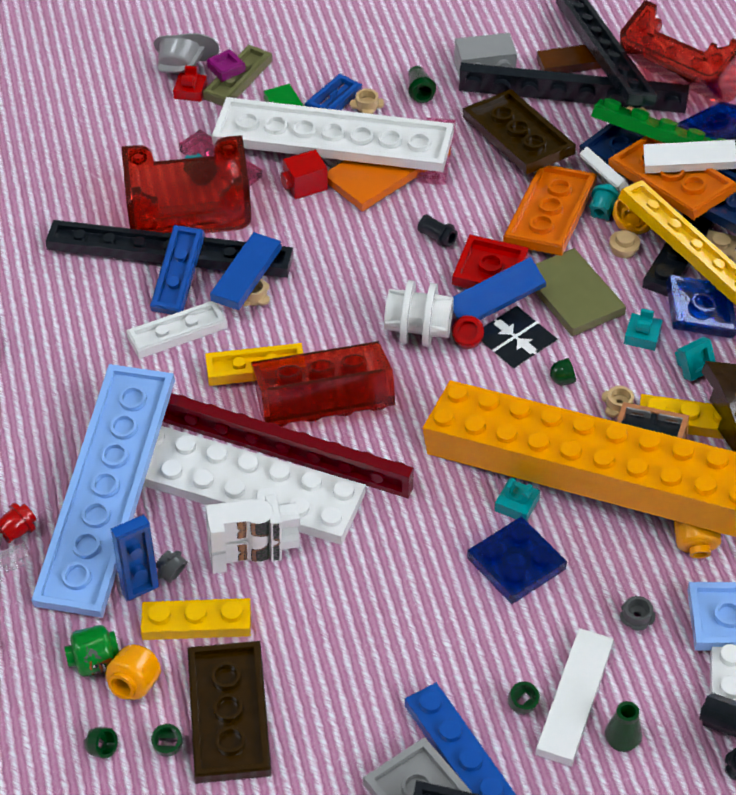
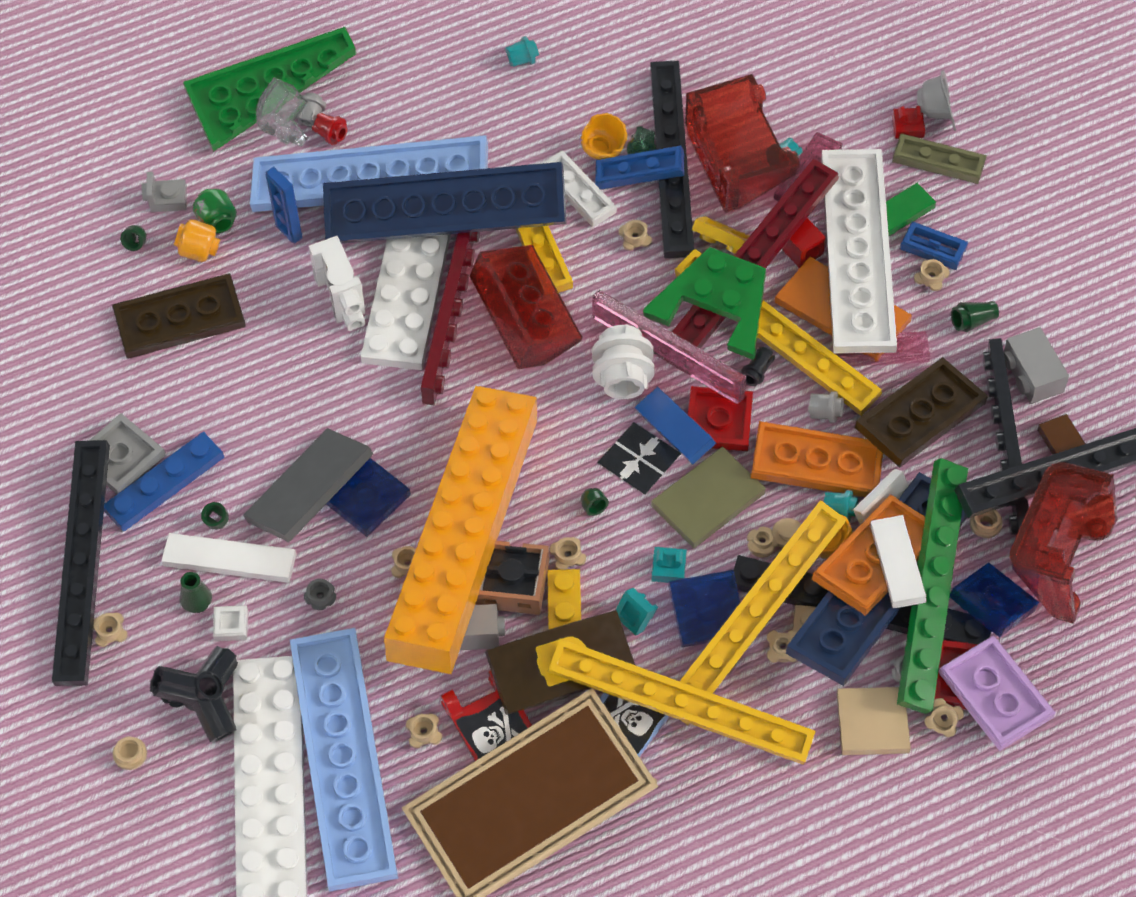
camera: 80 degrees right, 10 degrees up
(45, 703) = (165, 194): none -> light grey bracket
(128, 290) = (603, 136): none -> light orange hair
(145, 266) = (641, 141): none -> clear green hose
(166, 733) = (134, 280): dark green hinge -> none
(170, 565) = (303, 240): dark grey plate -> none
(185, 416) = (445, 203): none -> dark blue plate
(196, 619) = (262, 274): yellow plate -> none
(226, 65) = (939, 141): magenta tile -> none
(245, 271) = (647, 217): blue tile -> none
(287, 220) = (715, 231): none -> yellow plate
(328, 198) = (766, 241): none -> dark red plate
(361, 218) = (720, 286): none -> green wing
(399, 211) = (809, 355): none -> yellow plate
(421, 268) = (672, 348): none -> clear pink tile
(467, 332) = (625, 413): red tile -> none
(495, 191) = (826, 406): none -> light grey hose
(502, 602) = (308, 485): none -> dark grey tile
(517, 499) = (427, 483): teal tile -> none
(612, 525) = (400, 556): none -> tan plate
(630, 262) = (761, 549): none -> tan plate
(659, 705) = (230, 623): none -> white tile

